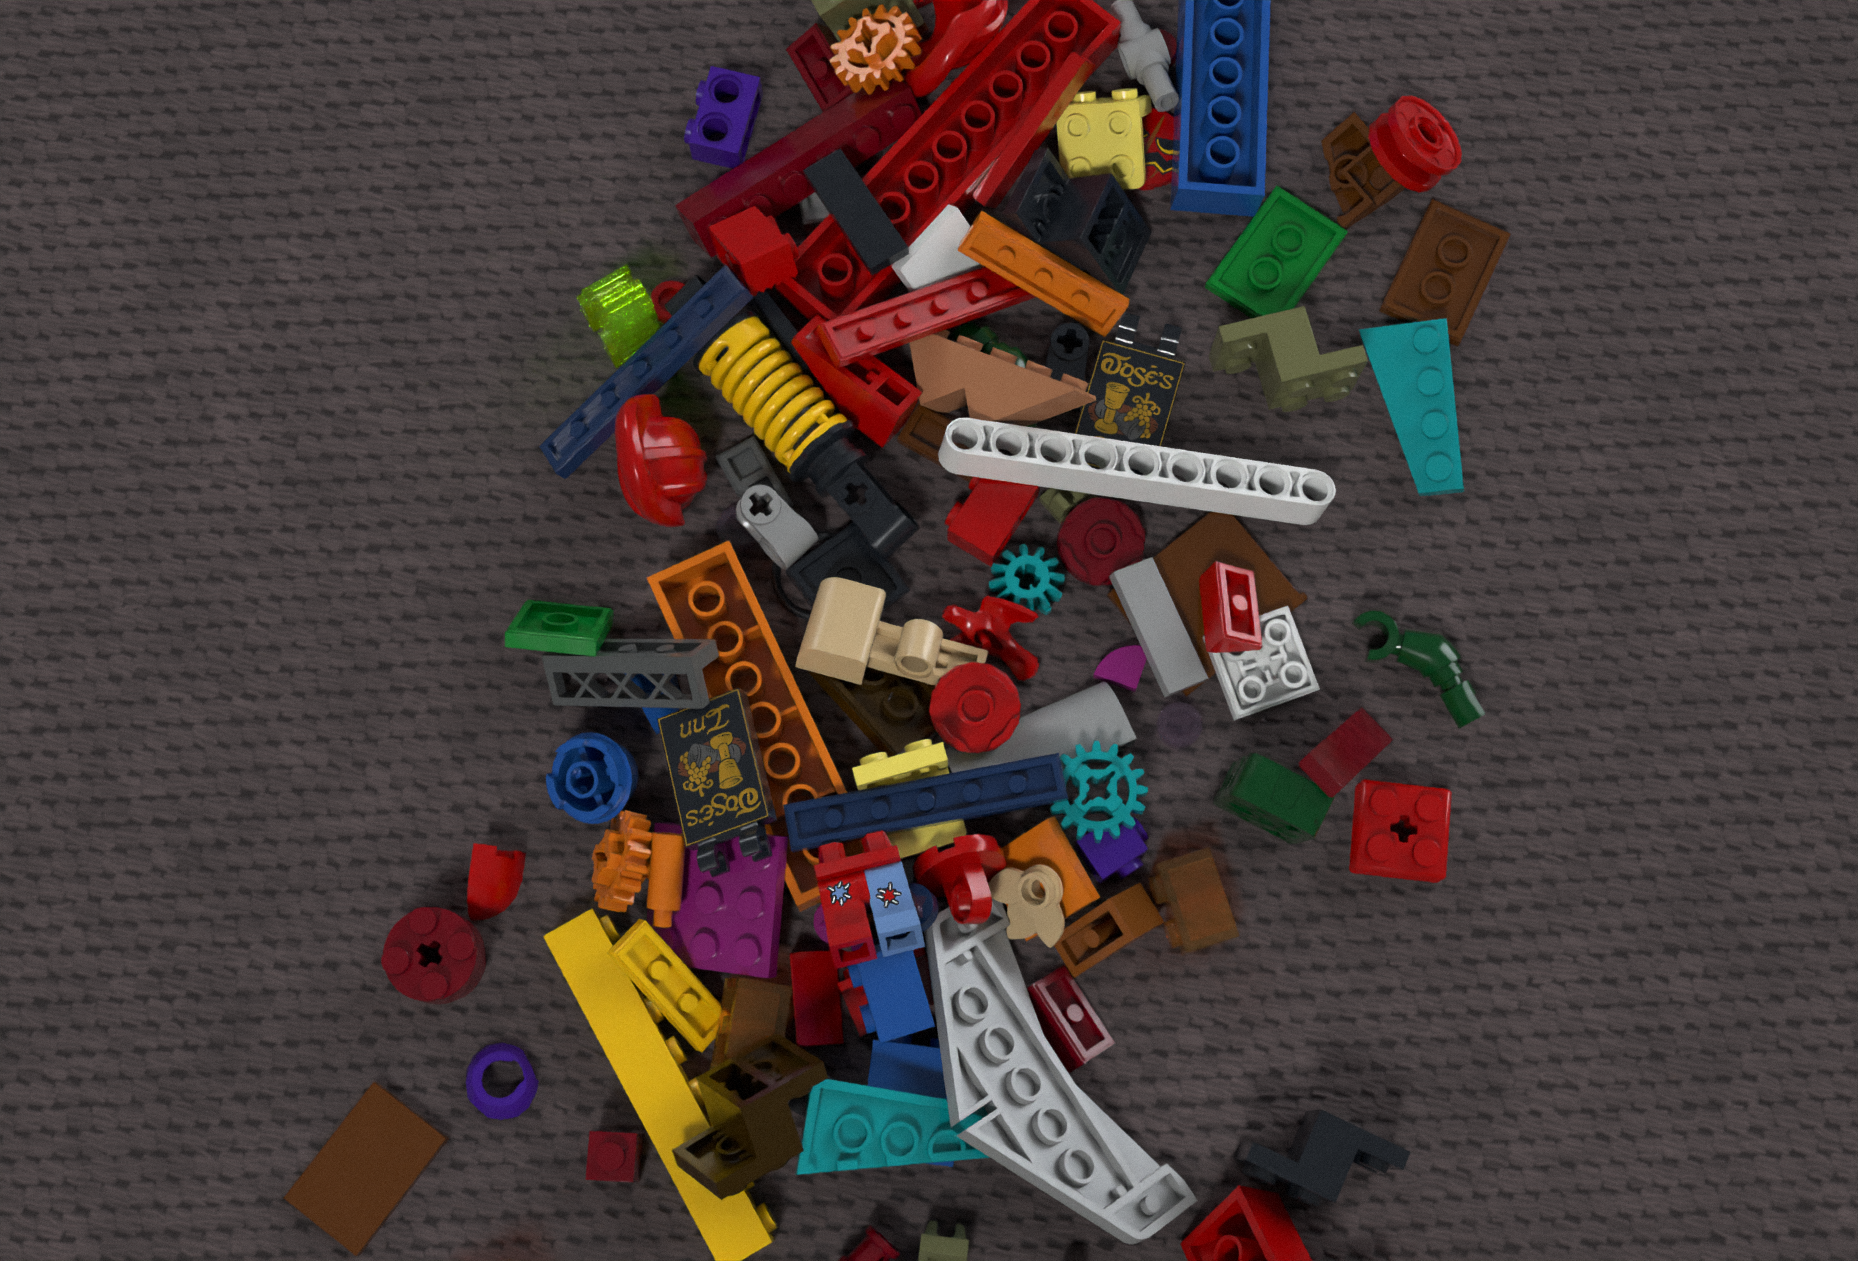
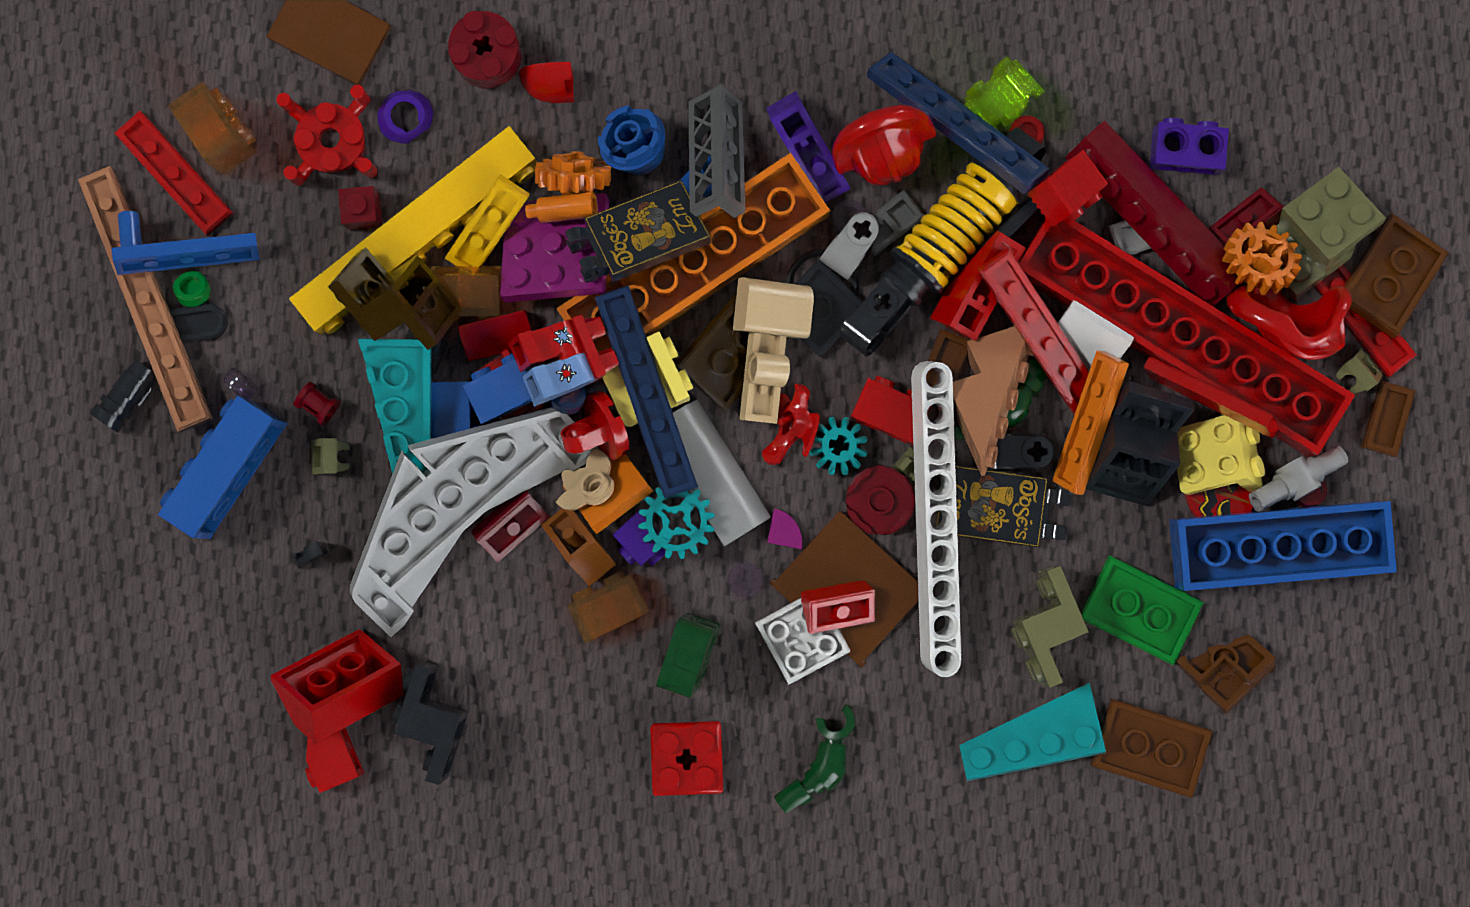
camera: 85 degrees right, 10 degrees up
(483, 1194) = (318, 121): none -> red plate
(559, 628) = (744, 94): green tile -> none
(625, 566) = (807, 146): none -> dark purple slope
(856, 212) = (1114, 264): black tile -> none
(975, 707) = (727, 419): red tile -> none
(1158, 627) = (817, 552): light grey tile -> none
(1345, 752) = (732, 705): dark red tile -> none
(1415, 144) = (1253, 709): red wheel -> none

